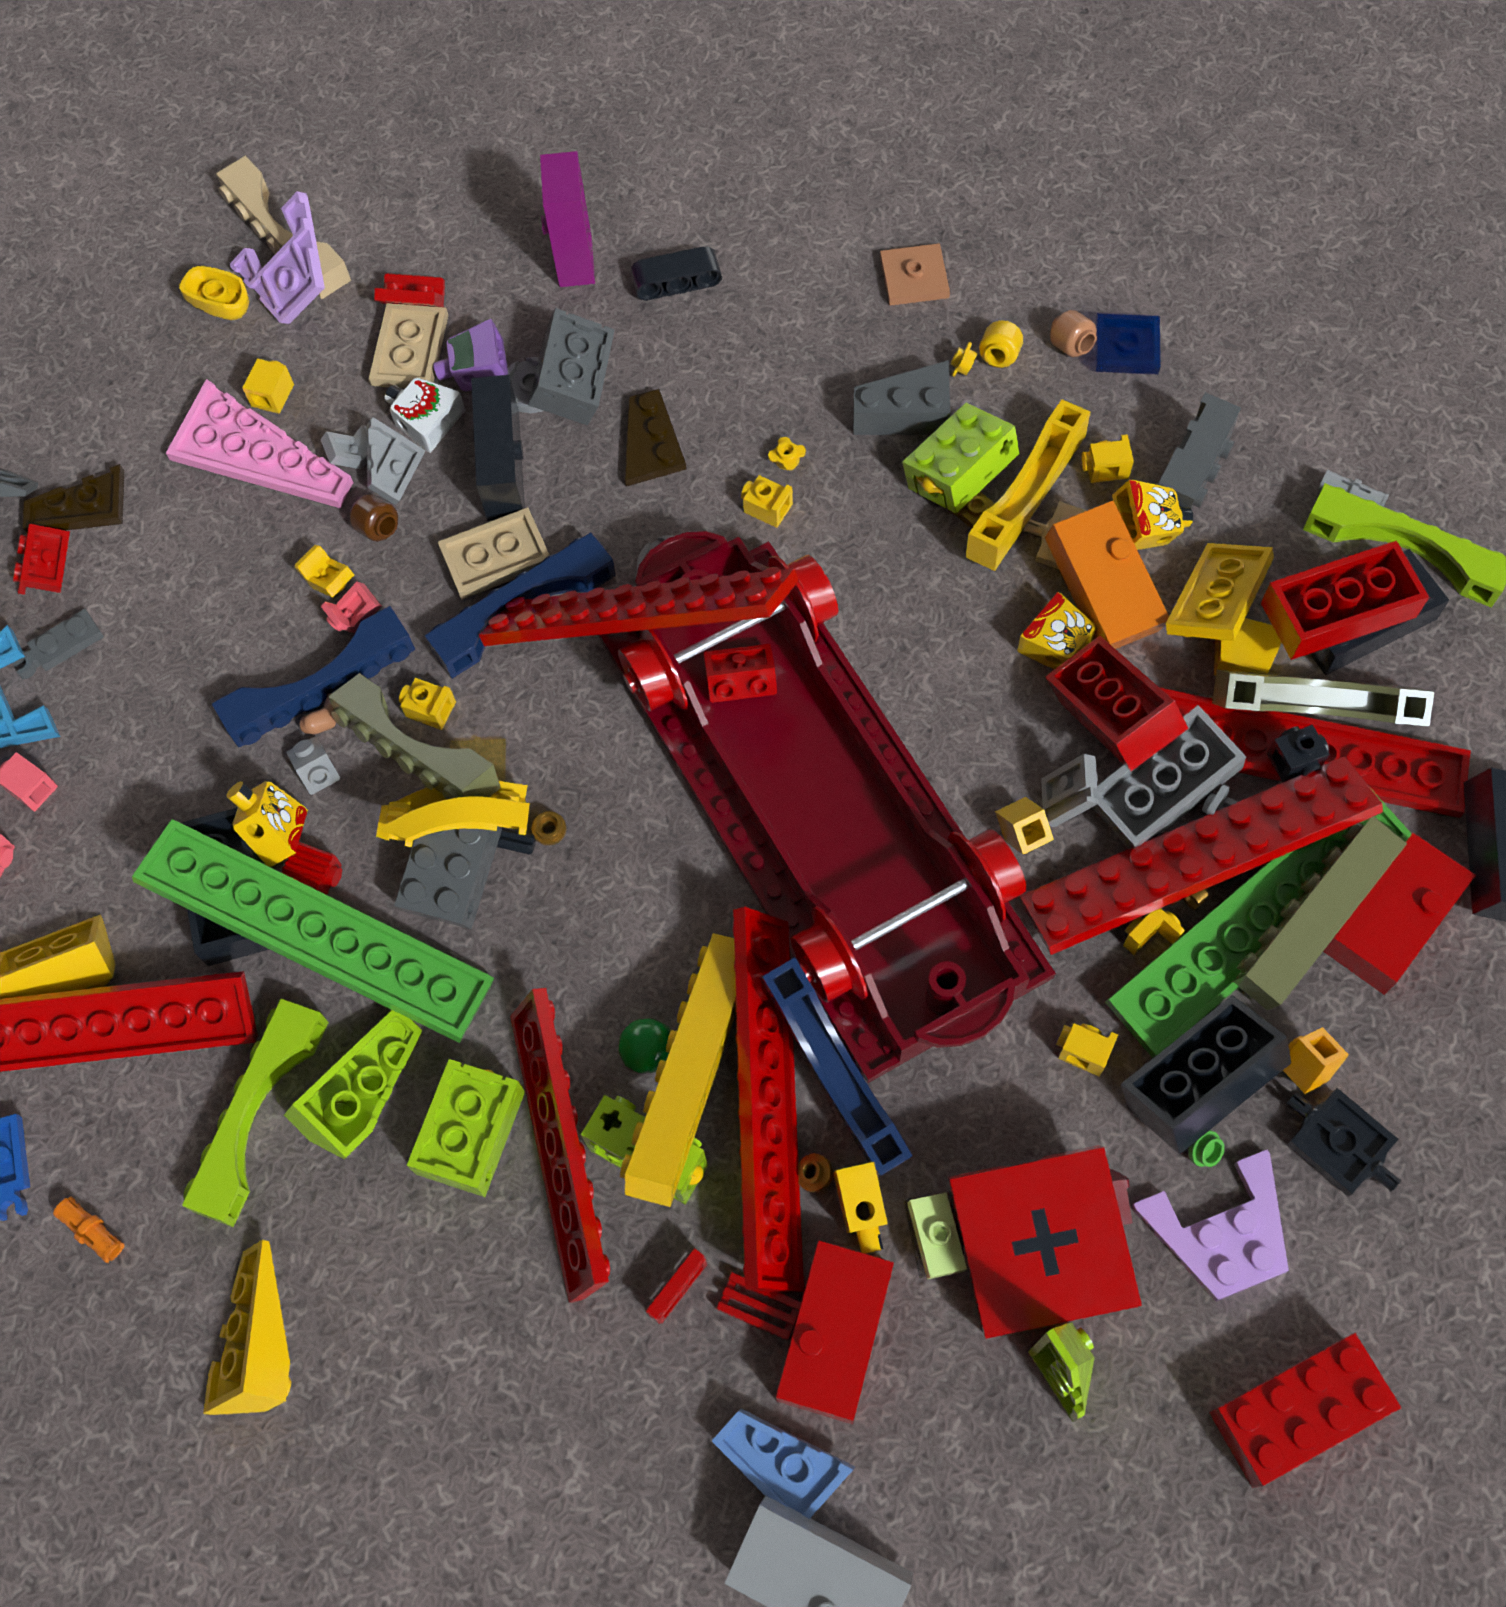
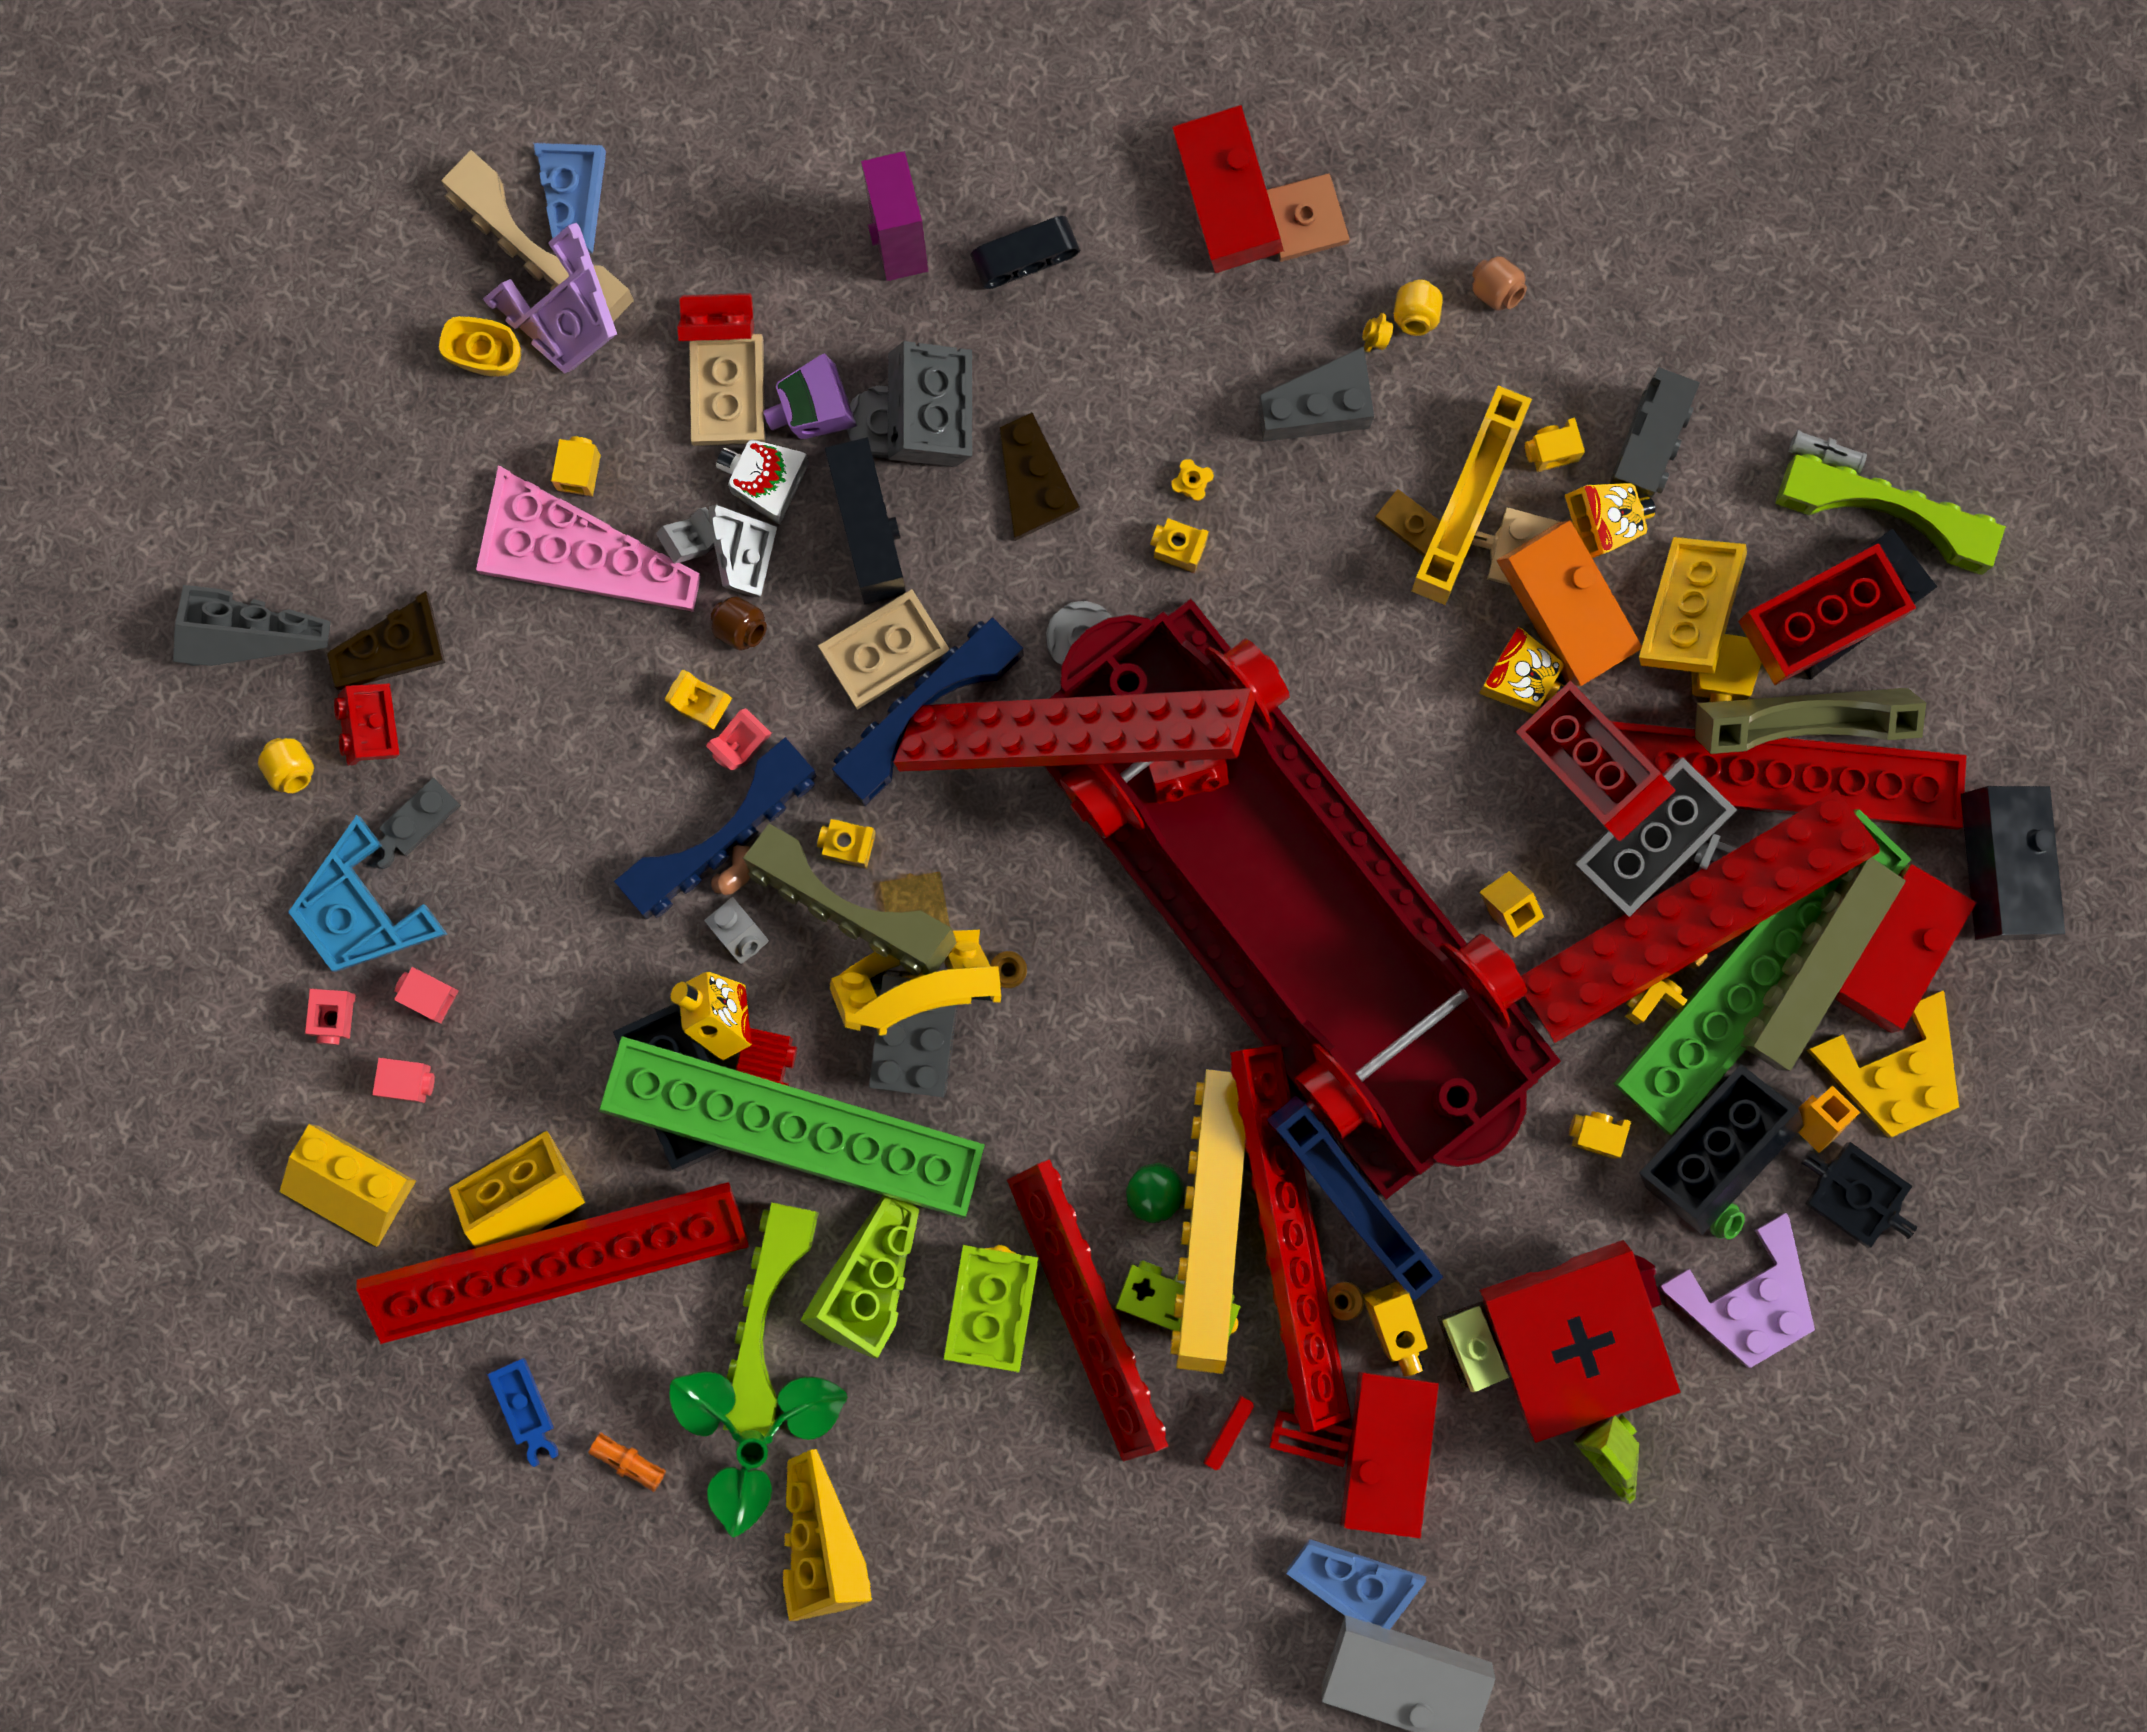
camera: 15 degrees left, 15 degrees up
(164, 1175) = (704, 1400): none -> green plant
(326, 190) = (572, 186): none -> medium blue wing
(852, 242) = (1228, 189): none -> red brick
(961, 457) = (1392, 468): lime piece -> none
(1070, 790) = (1555, 860): light grey plate -> none
(1128, 343) = (1562, 287): clear blue plate -> none
(1298, 752) = (1790, 790): black brick -> none
(1304, 1410) = (1838, 1461): red brick -> none
(1394, 1044) = (1905, 1085): none -> yellow wing

